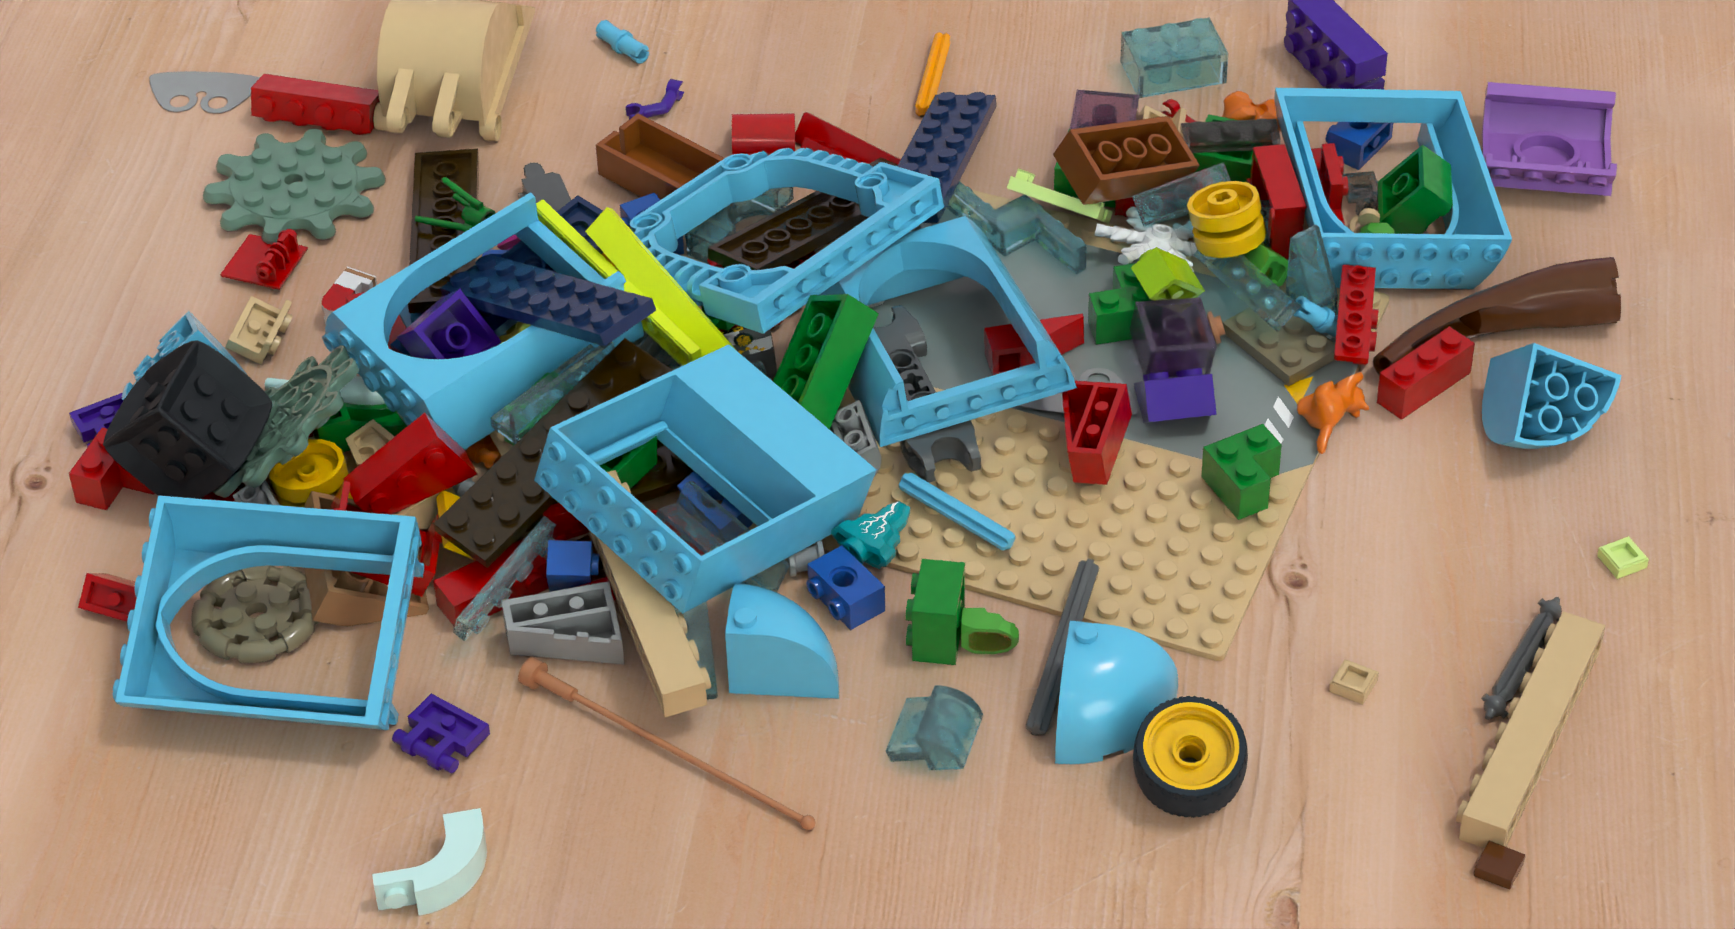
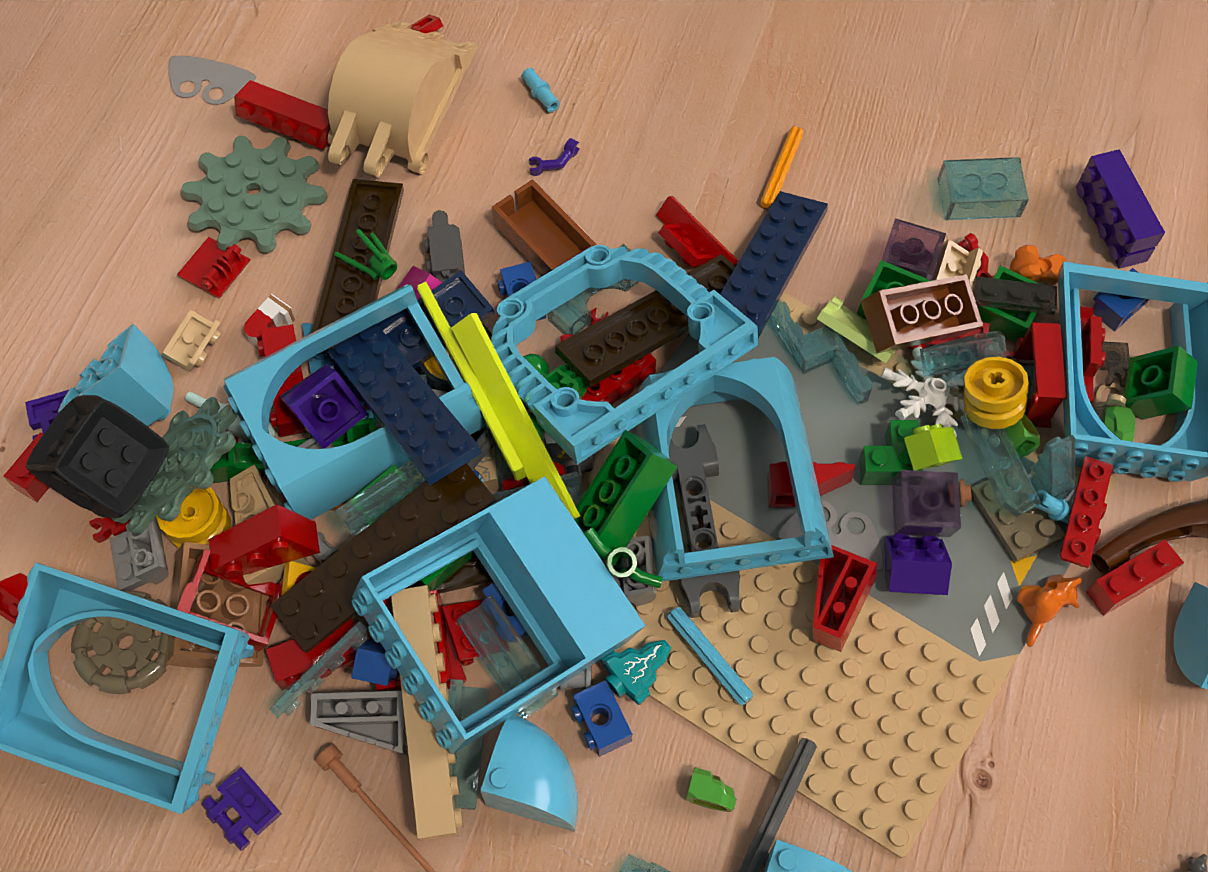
camera: 10 degrees right, 20 degrees up
(762, 133) = (631, 213): red brick -> none
(842, 410) = (631, 571): none -> green piece
(936, 611) = (671, 773): green brick -> none
(1242, 469) = (953, 661): green brick -> none

